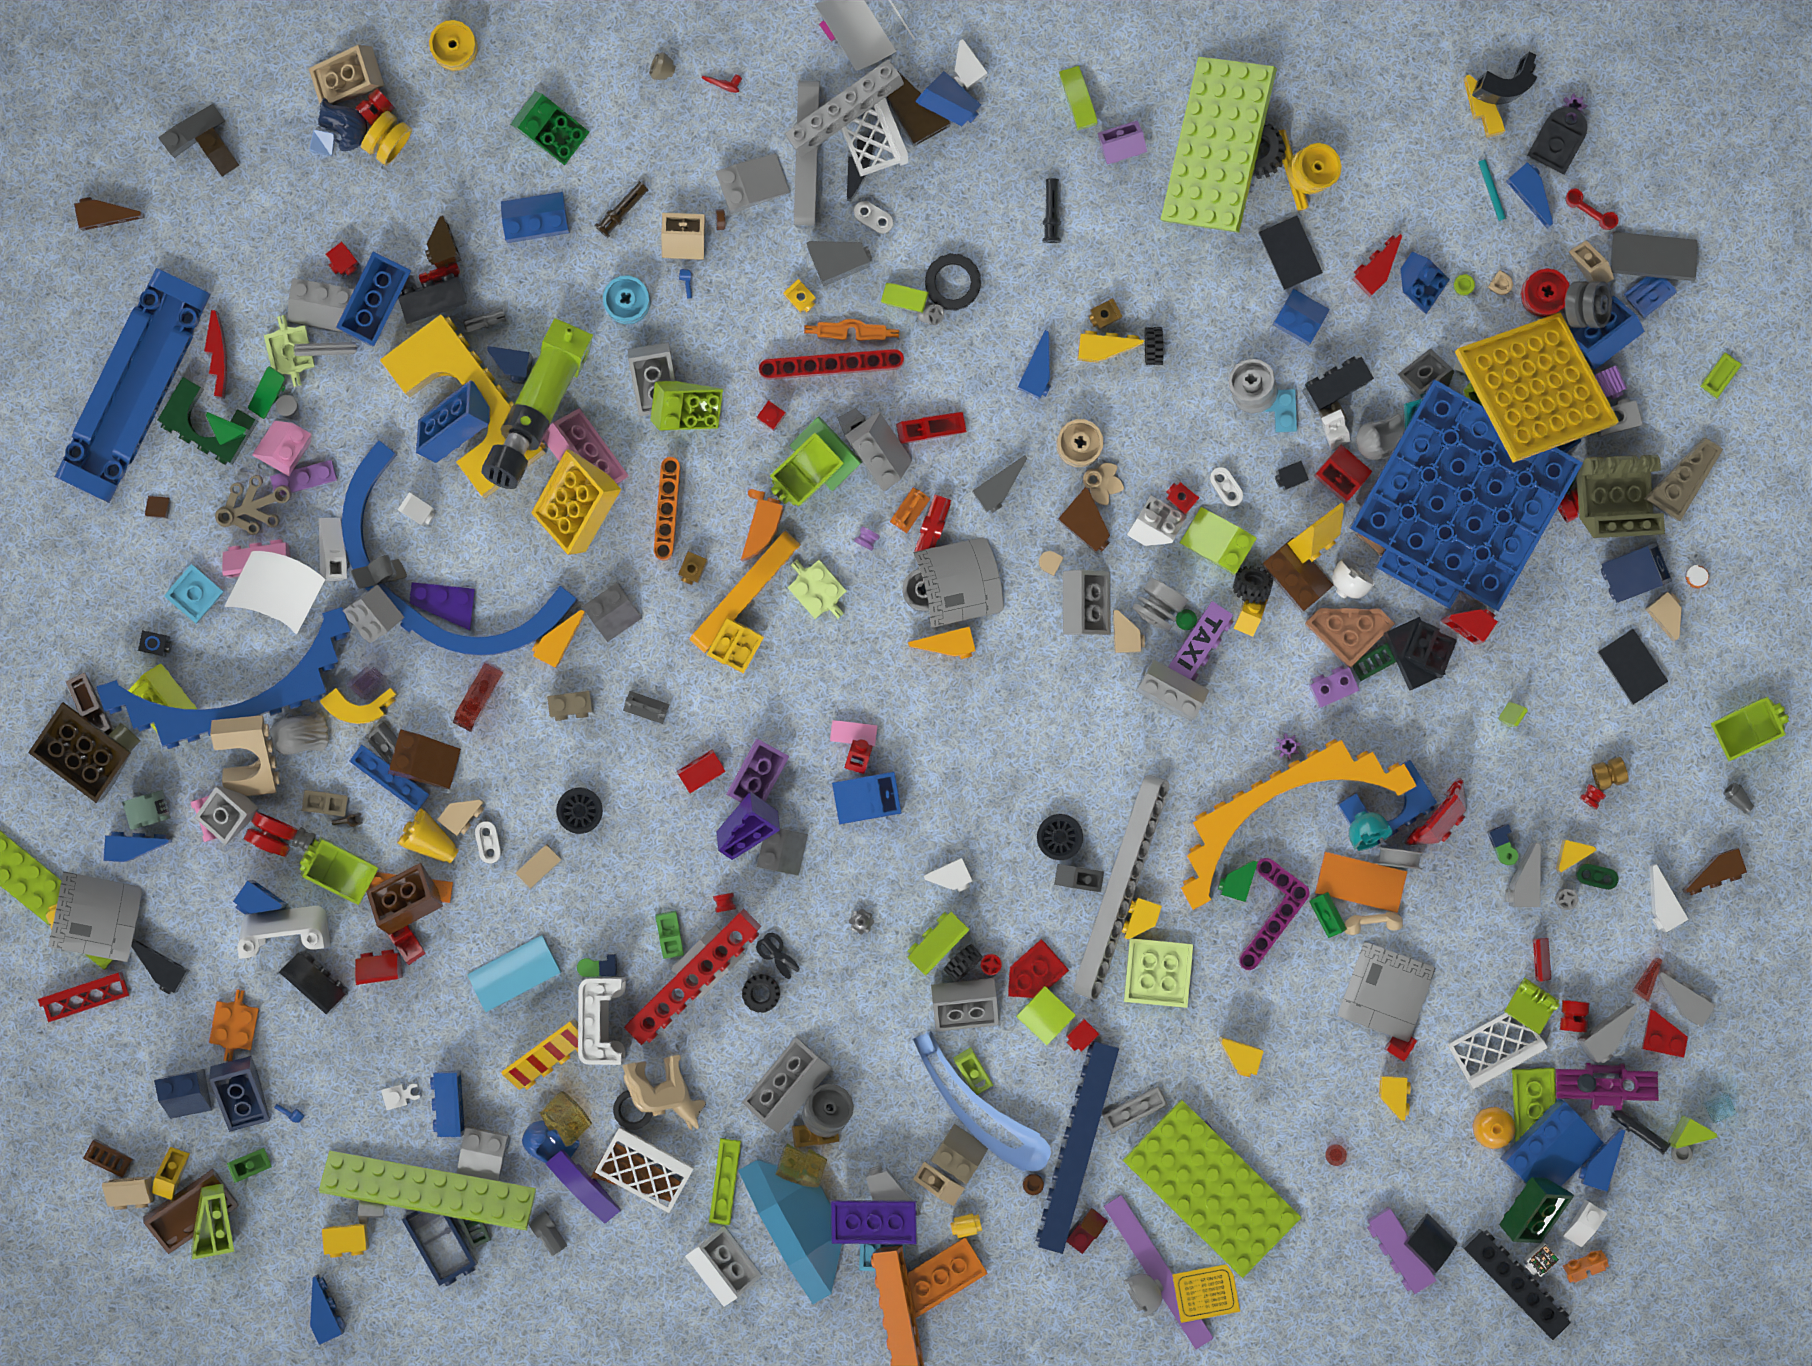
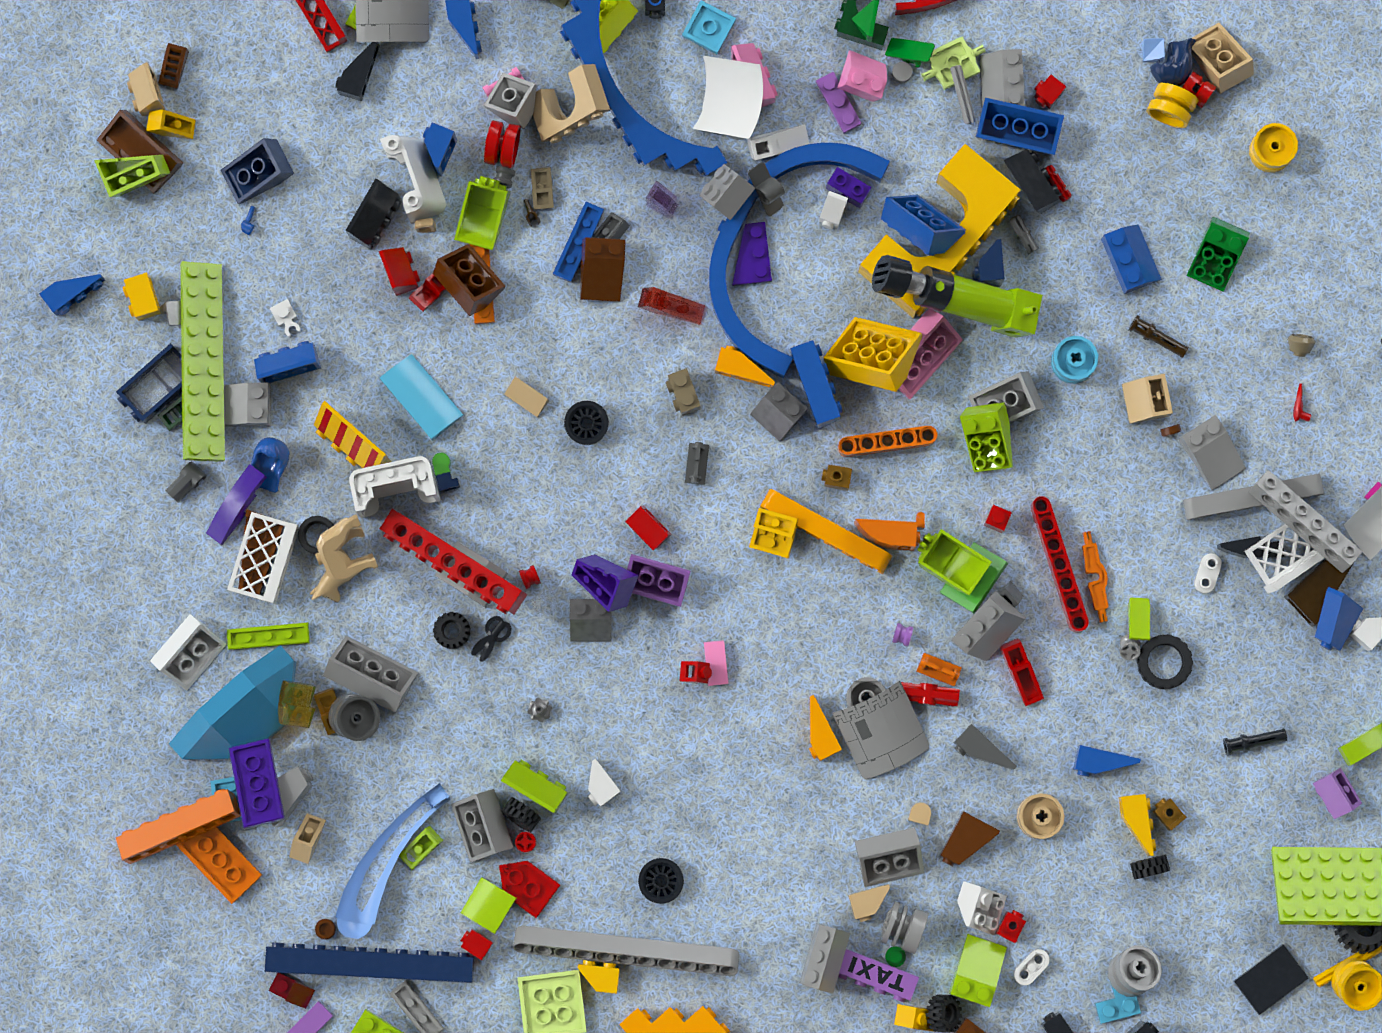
camera: 85 degrees right, 5 degrees down
(146, 809) = (500, 27): sand green brick -> none
(183, 1093) = (246, 119): dark blue slope -> none
(233, 1025) = (319, 152): orange plate -> none
(249, 1165) = (192, 193): bright green slope -> none
(250, 507) = (800, 59): dark tan plant -> none
(299, 734) = (600, 150): light grey piece -> none
(336, 931) = (425, 225): none -> tan tile
(346, 711) = (632, 186): yellow arch -> none
(396, 488) = (848, 186): none -> dark purple brick
(427, 838) = (529, 289): yellow cone -> none
(441, 245) = (1084, 178): dark brown slope -> none
(459, 814) = (557, 312): tan slope -> none
(488, 842) = (538, 345): white plate -> none
(566, 1117) = (296, 473): clear yellow slope -> none
(593, 568) = (815, 383): none -> blue slope
(669, 934) = (488, 533): bright green slope -> none
(685, 275) = (1110, 411): blue hand -> none
(795, 289) = (1116, 512): yellow brick -> none
(817, 589) = (844, 598): yellowish green plate -> none
(838, 259) = (1160, 548): dark grey slope -> none
(866, 798) = (657, 689): blue slope -> none
(959, 1154) = (339, 852): dark tan slope -> none
(966, 1225) = (273, 873): yellow brick -> none
(1079, 878) = (625, 908): dark grey slope -> none
(1105, 484) = (1007, 851): tan plate -> none
(1301, 317) = (1211, 1003): blue slope -> none

